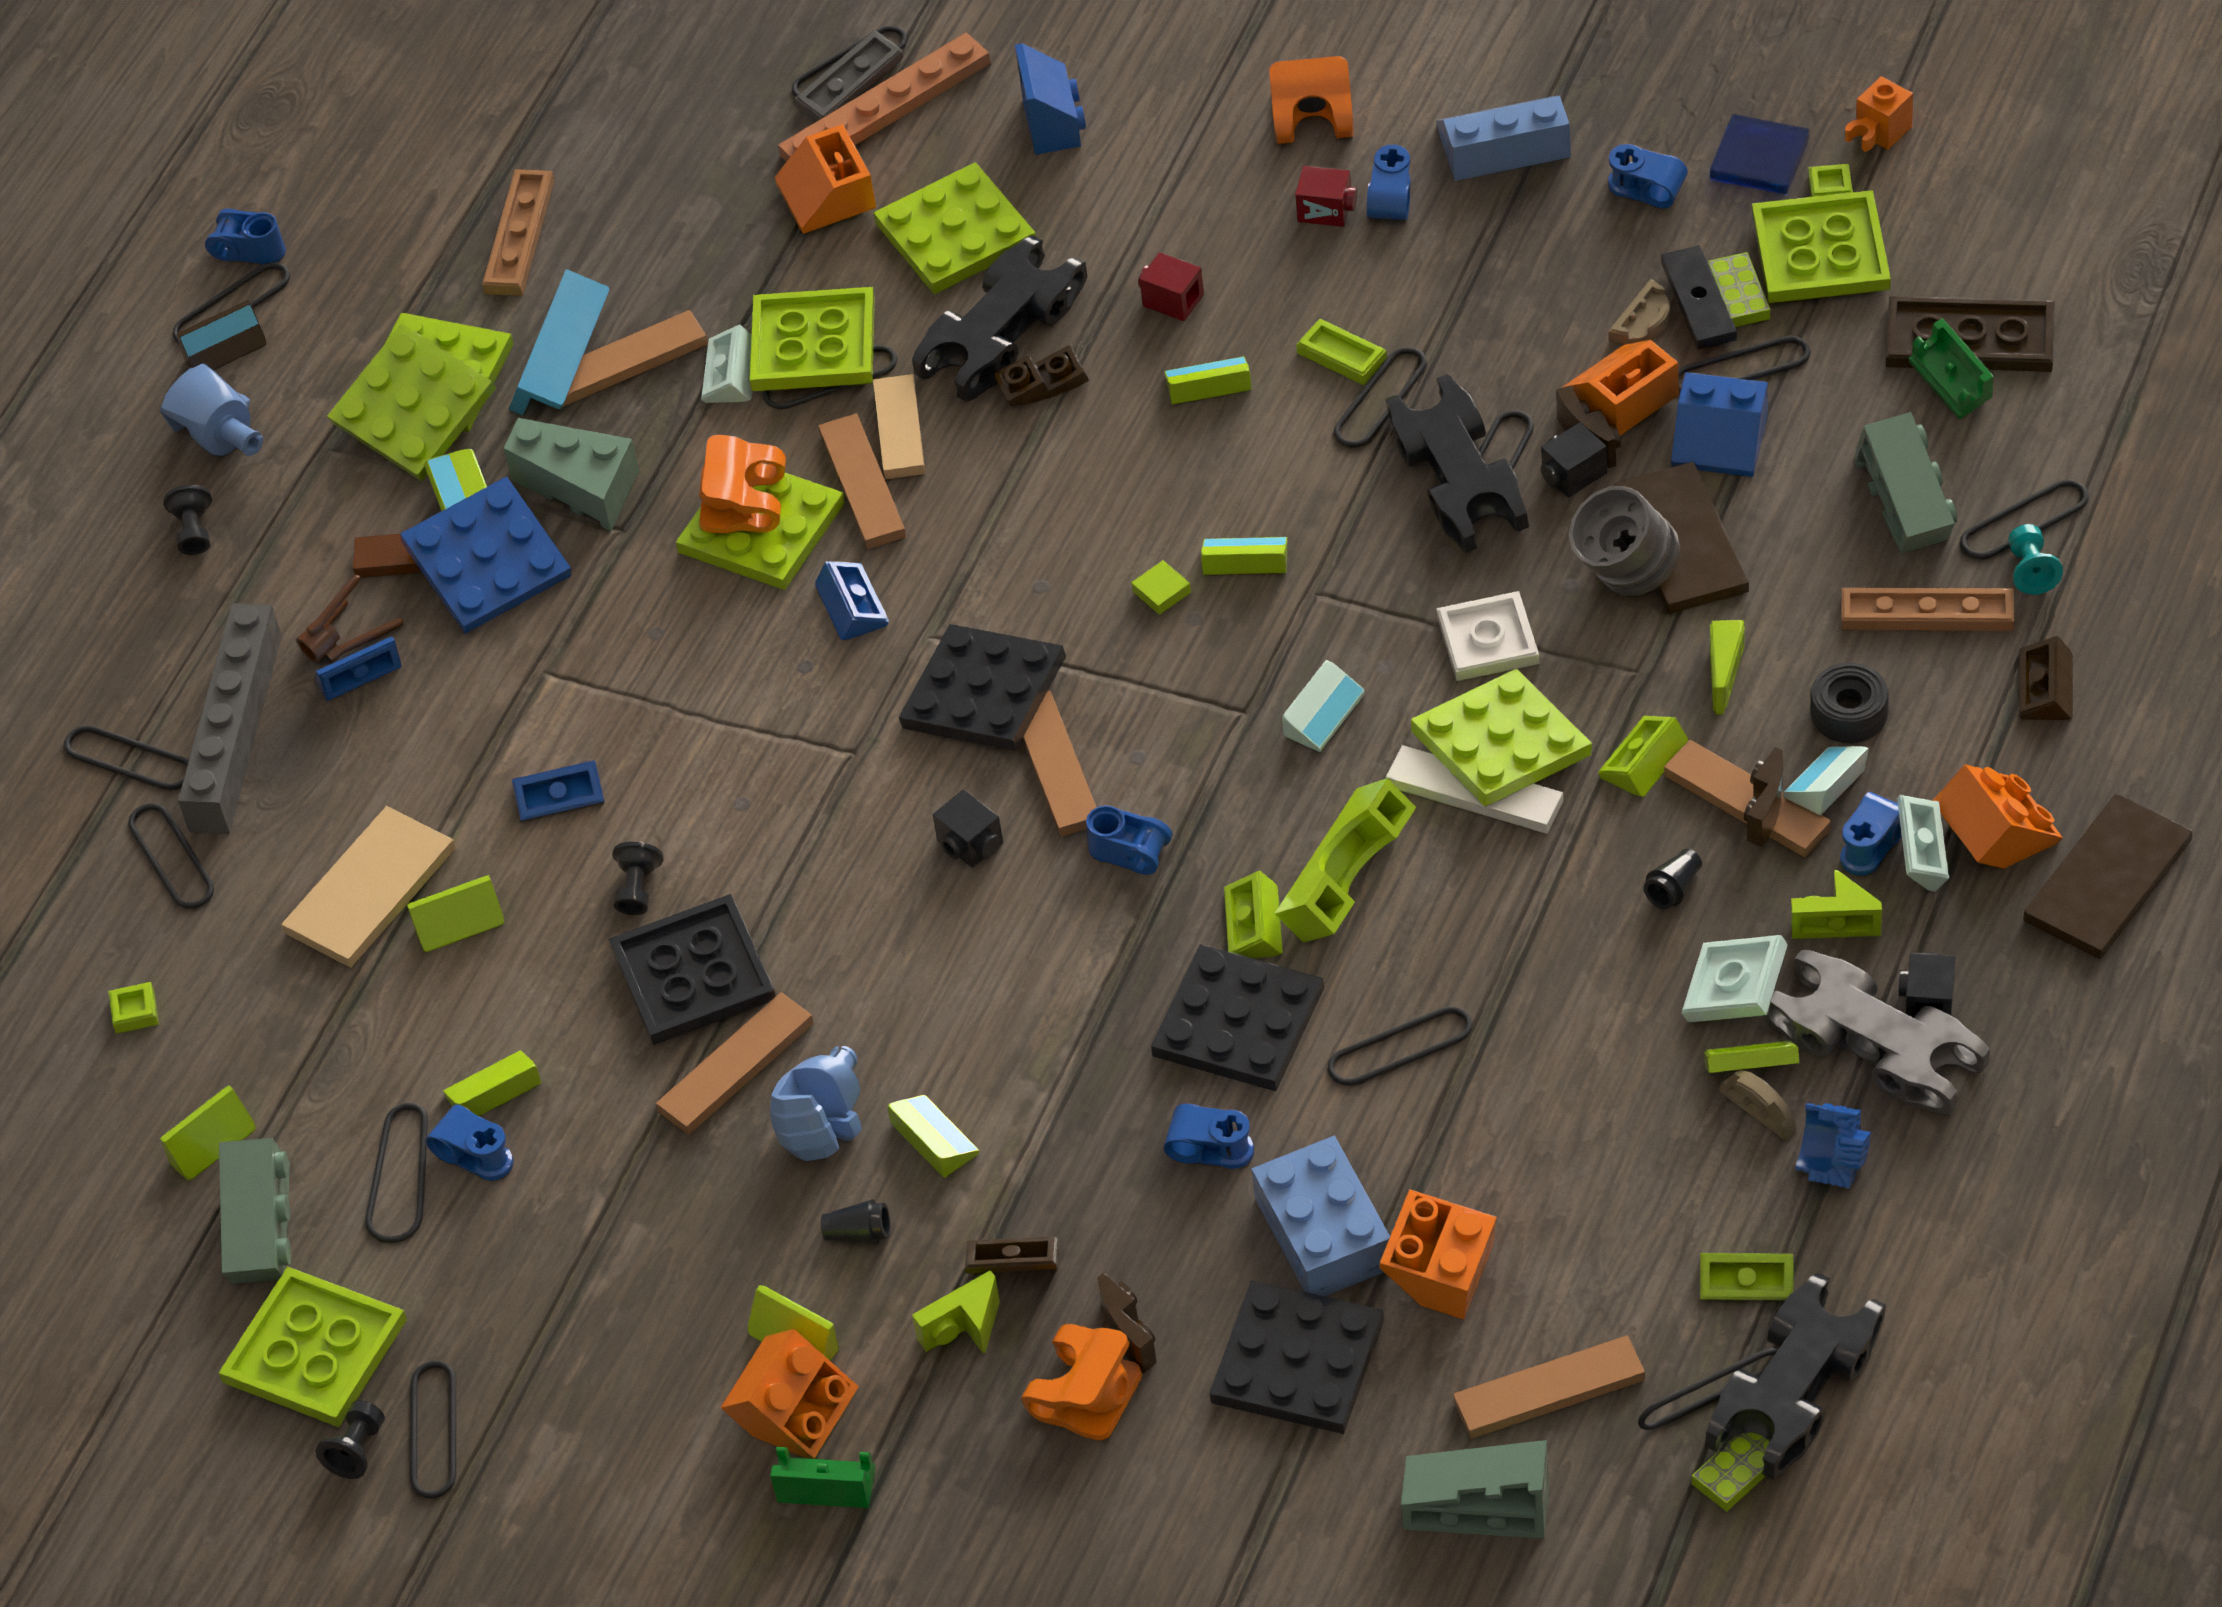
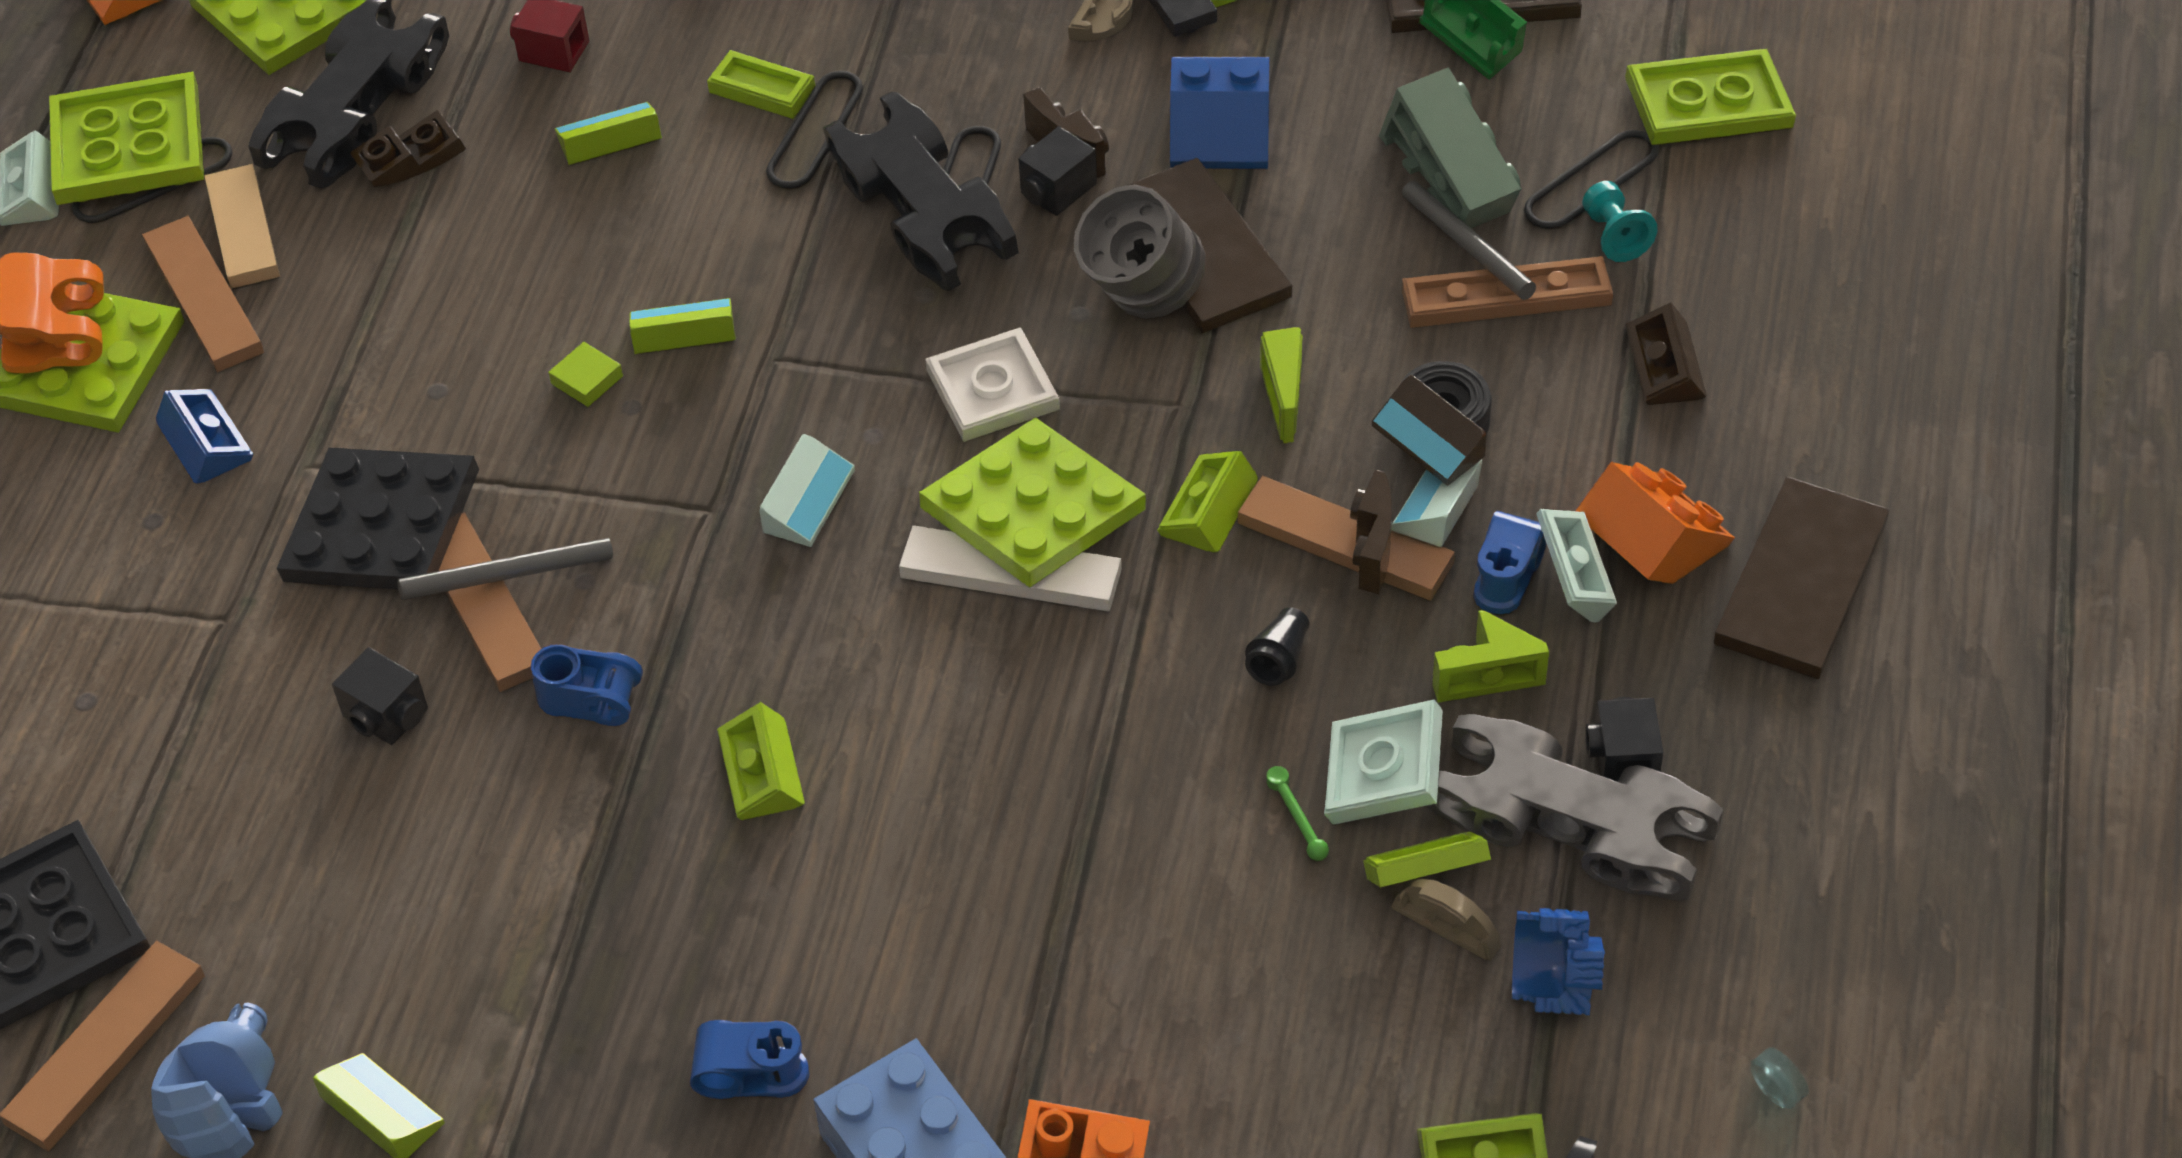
camera: 15 degrees left, 0 degrees up
(1076, 740) = (504, 568): none -> dark grey bar
(1237, 1017) = (760, 895): black plate -> none
(1344, 1081) = (983, 922): black piece -> none
(1363, 827) = (842, 724): lime arch -> none
(1629, 384) = (1108, 78): orange slope -> none
(1652, 982) = (1278, 780): none -> bright green hinge
(1802, 360) = (1221, 35): black piece -> none
(1828, 720) = (1431, 430): none -> dark brown slope
(1903, 561) = (1469, 240): none -> dark grey bar
(1981, 1253) = (1779, 1078): none -> clear light blue tile
(2142, 458) = (1709, 96): none -> lime tile

